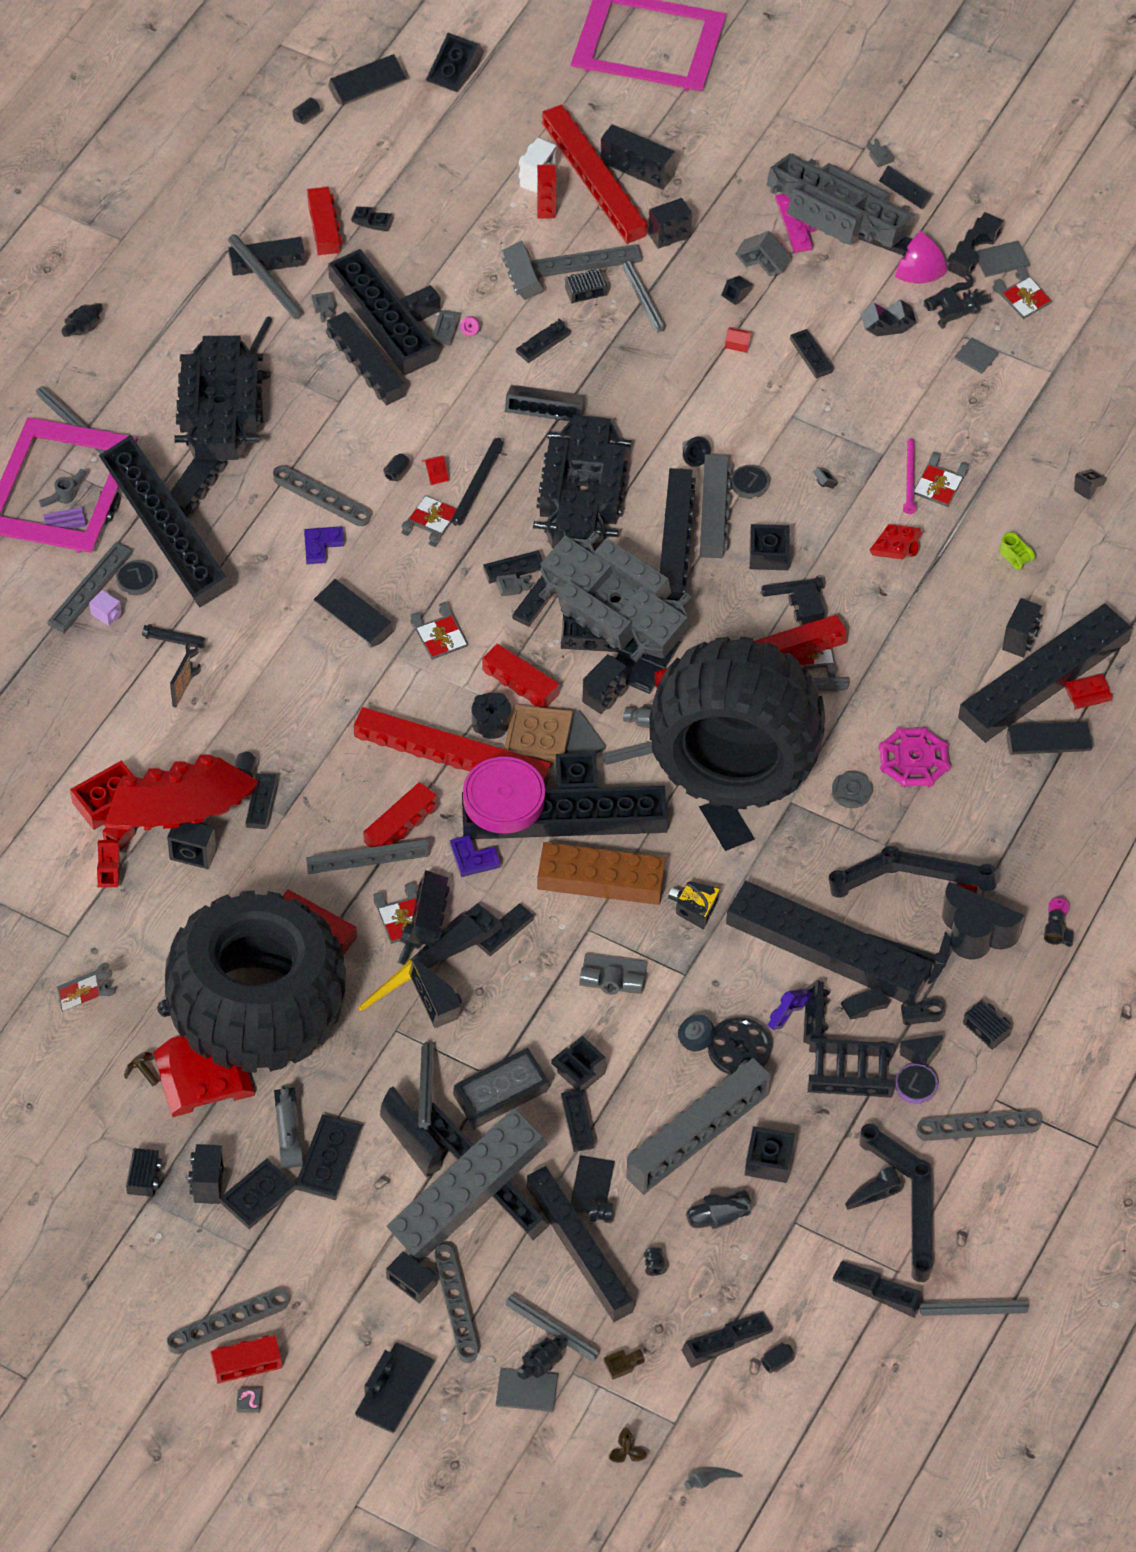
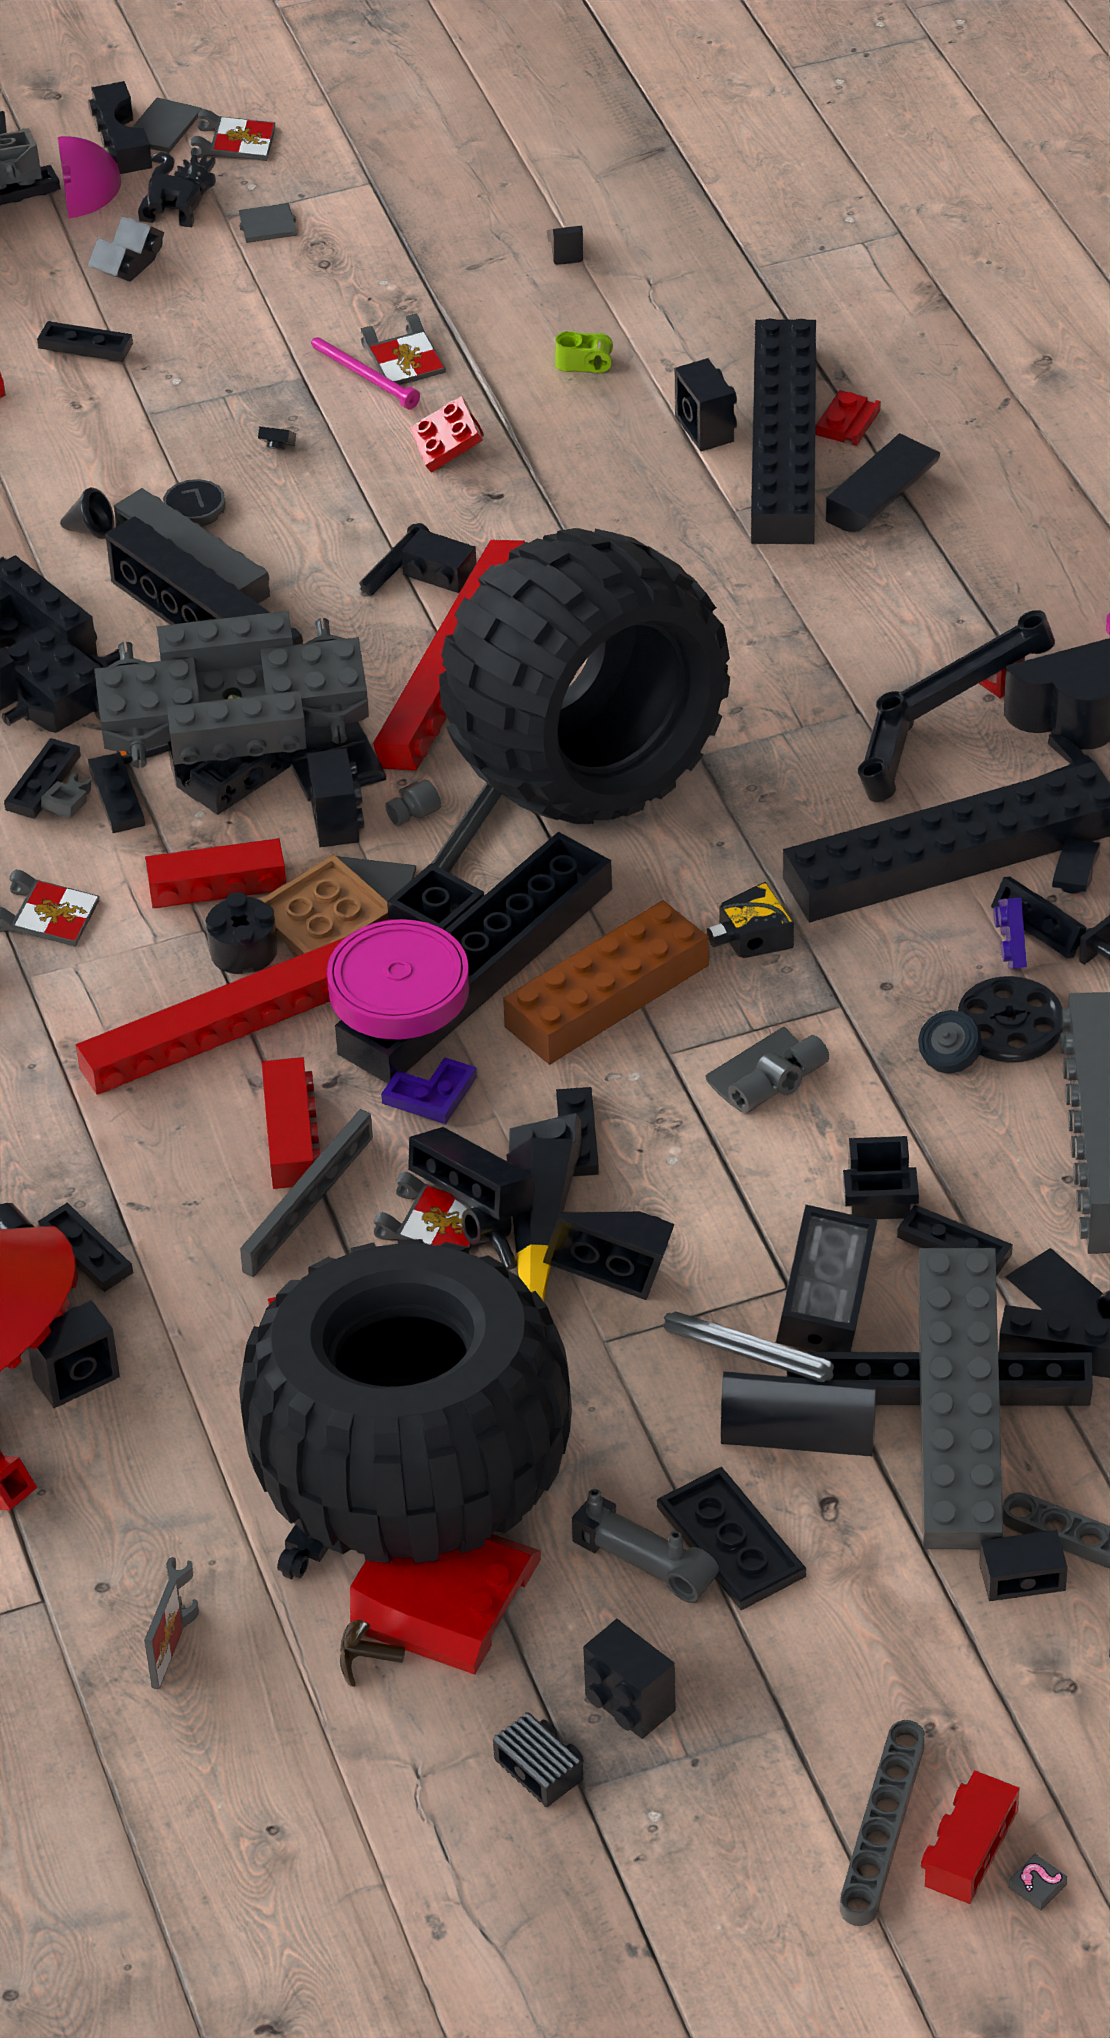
camera: 45 degrees left, 10 degrees down
(257, 1193) = (711, 1651): black plate -> none
(727, 825) = (663, 830): black sticker -> none
(769, 547) = (318, 537): black brick -> none
(851, 790) = (750, 691): dark grey tile -> none
(912, 766) = (751, 610): dark pink plate -> none

